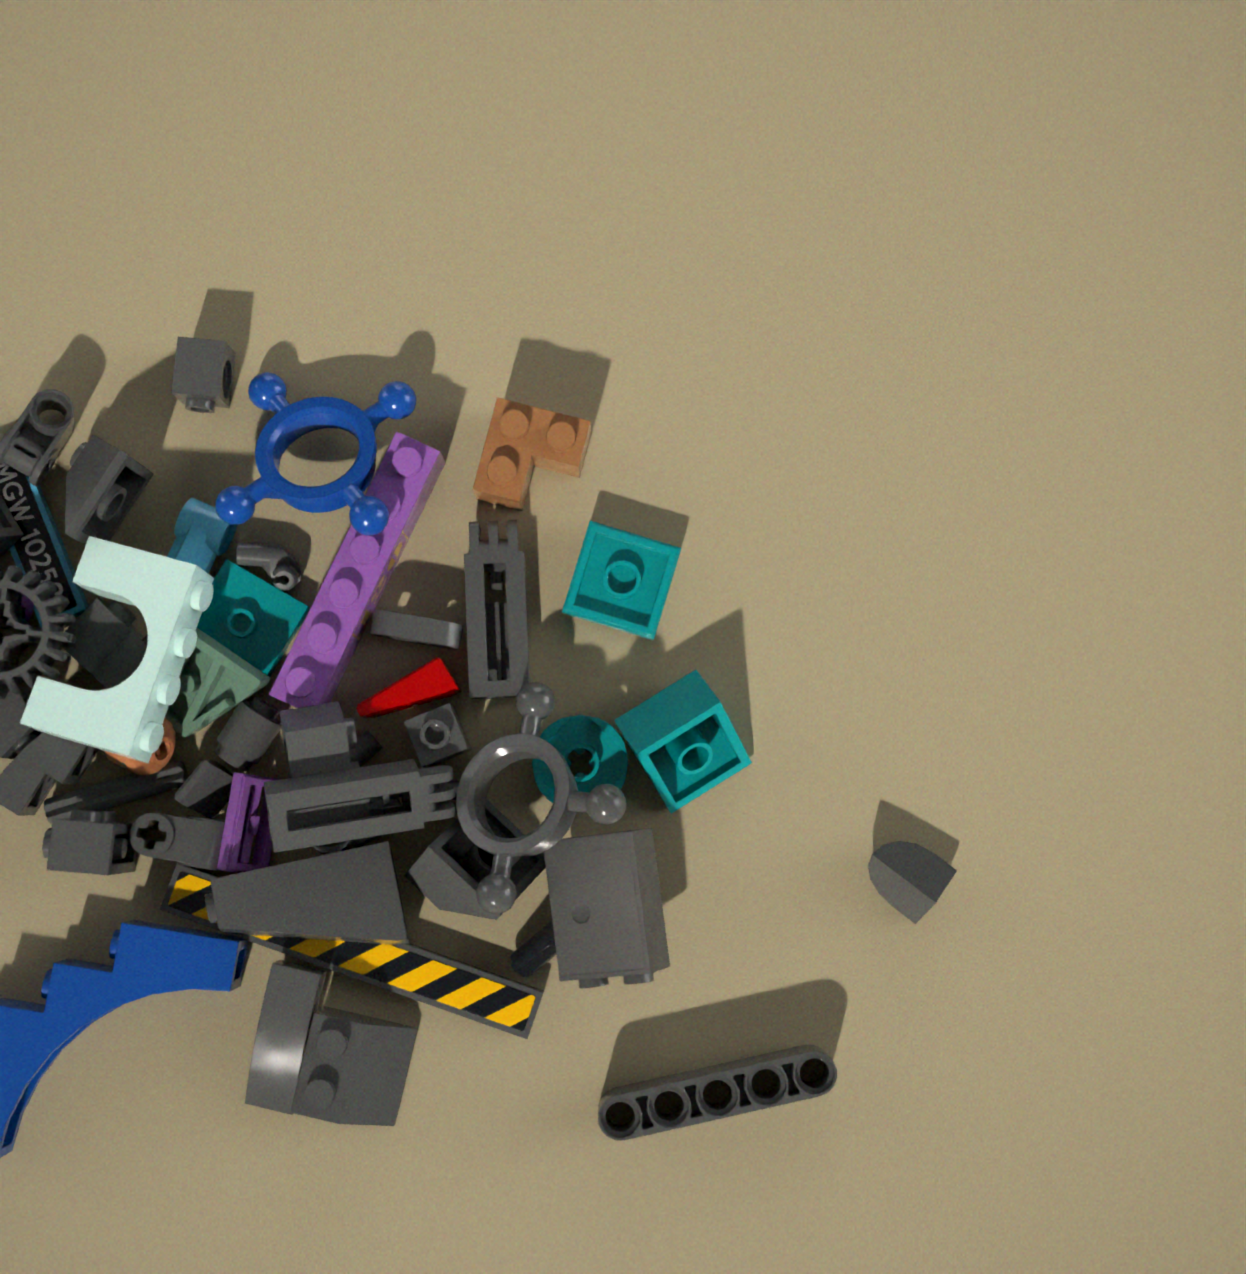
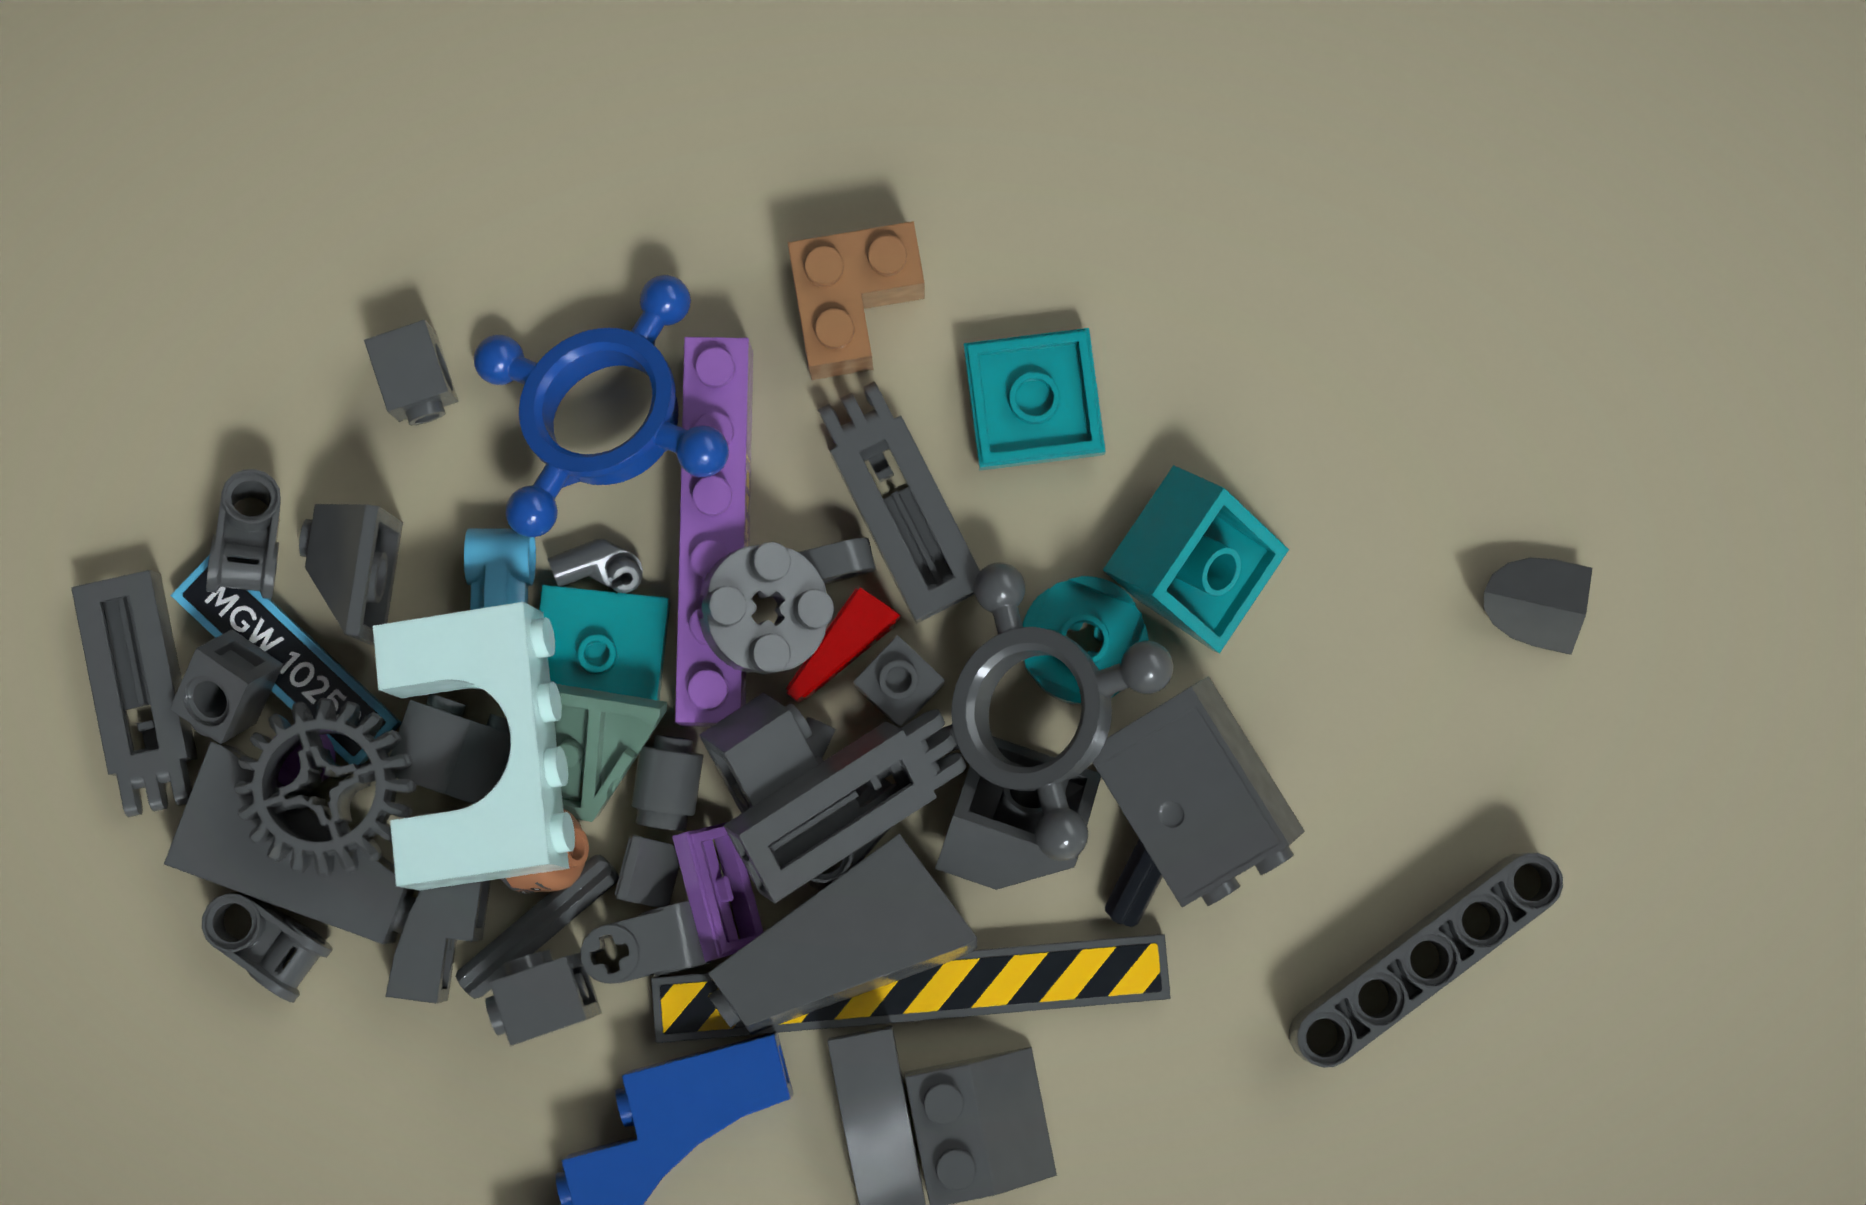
camera: 20 degrees left, 0 degrees up
(338, 631) = (728, 608): none -> plate

